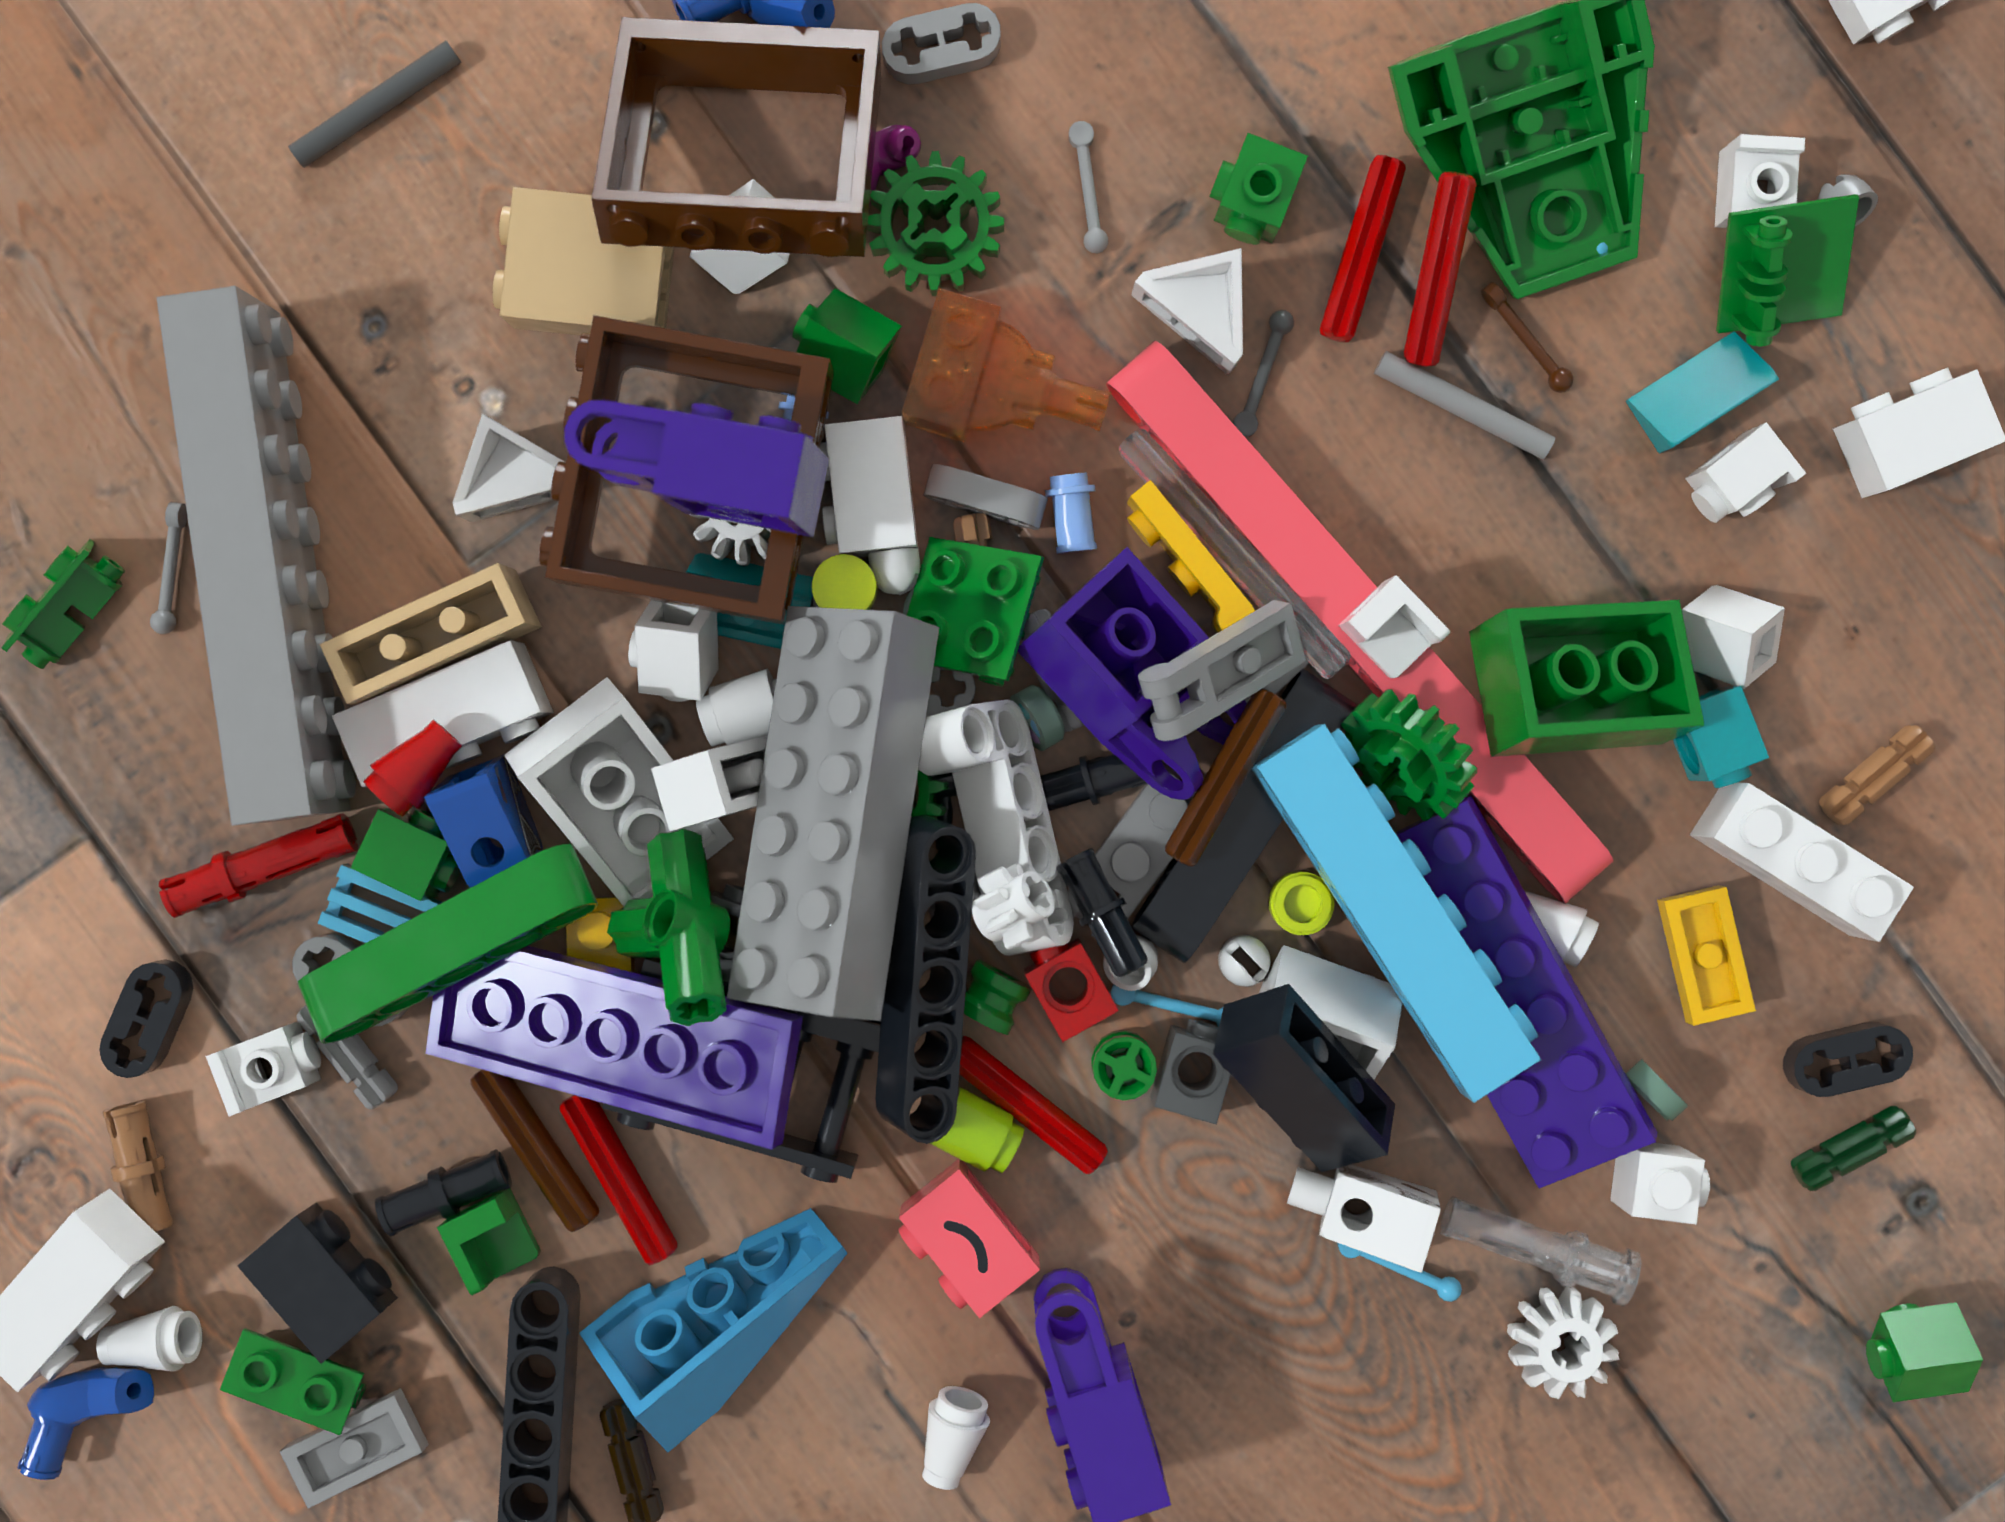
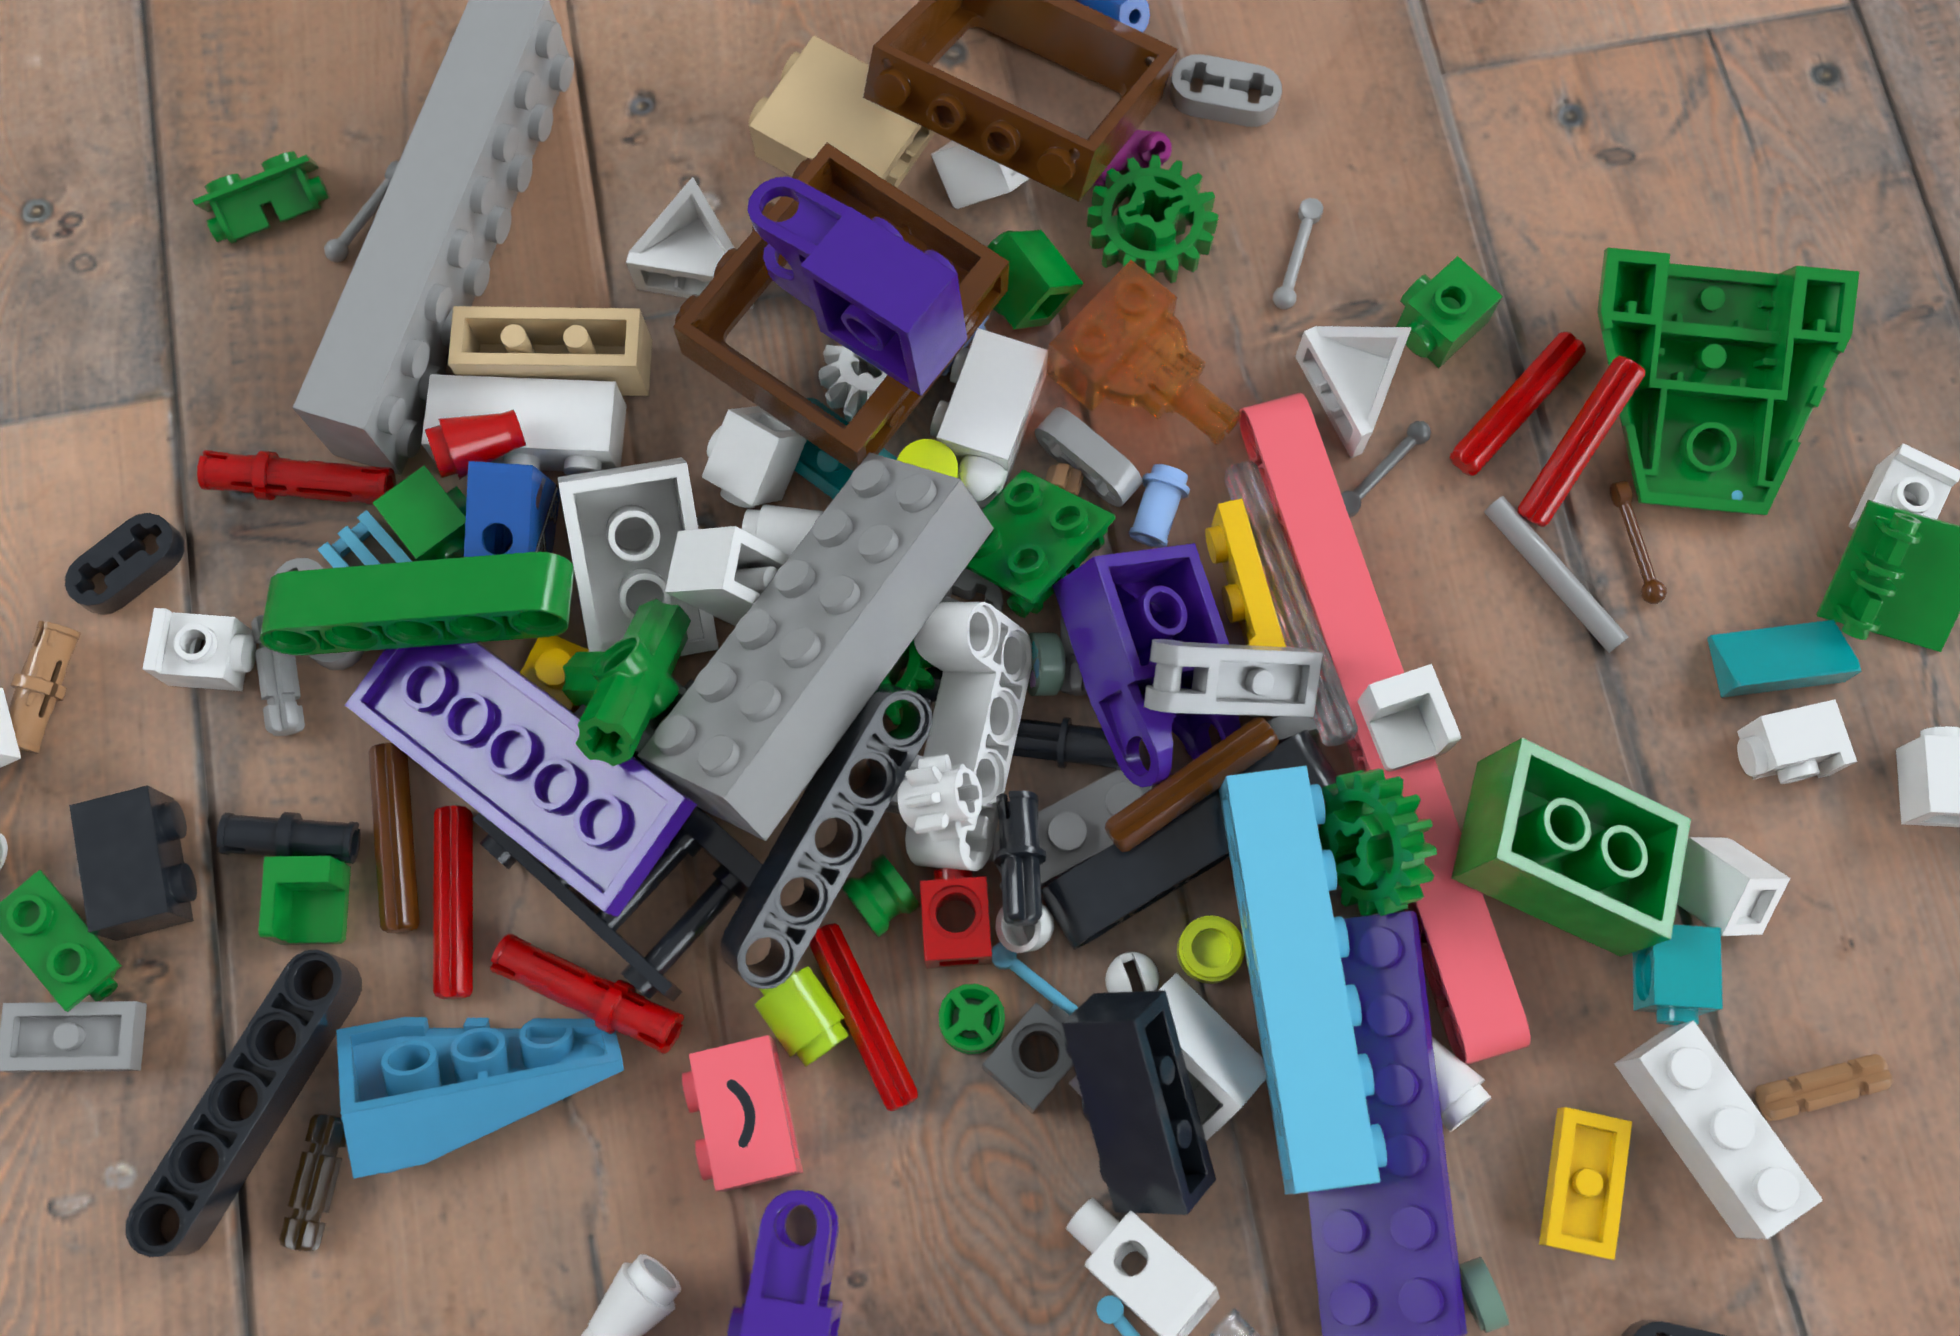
camera: 25 degrees right, 15 degrees down
(771, 1201) = (607, 1003): none -> red pin

